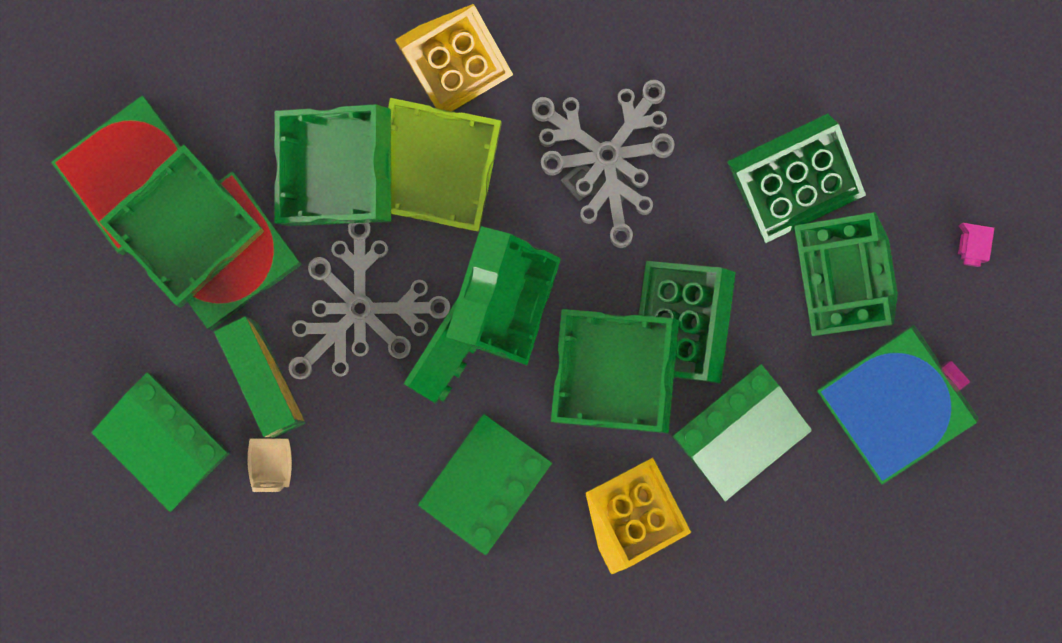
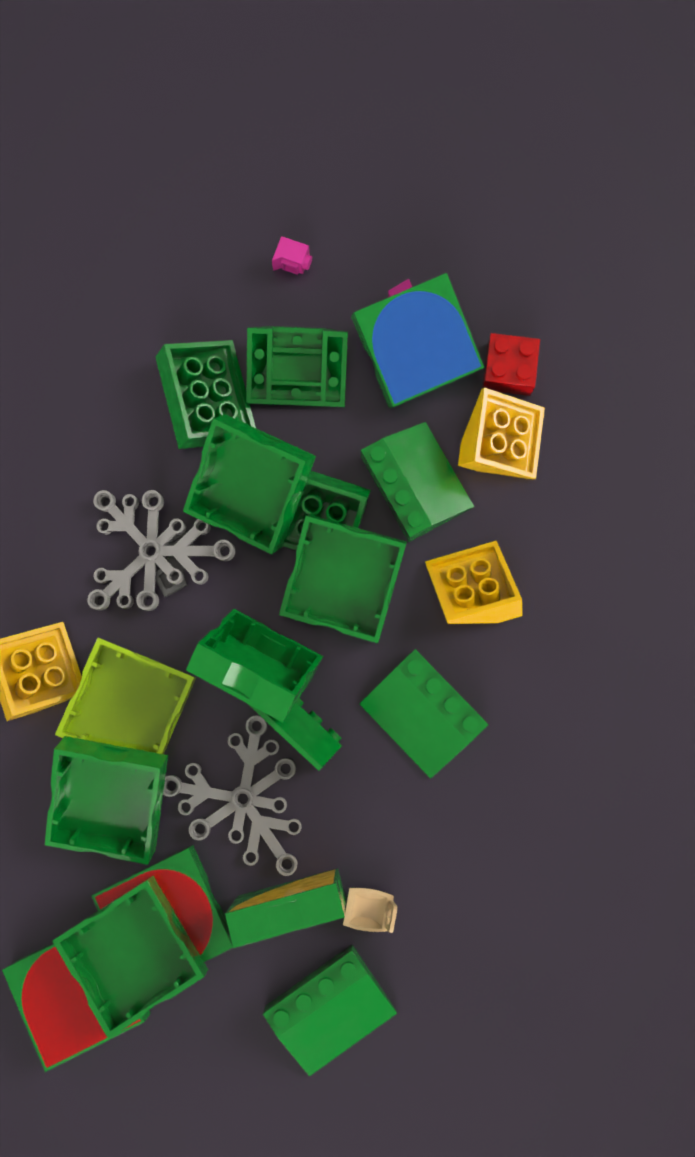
camera: 75 degrees left, 5 degrees down
(698, 249) = (248, 483): none -> green tile
(809, 520) = (502, 436): none -> yellow slope
(894, 514) = (511, 364): none -> red brick

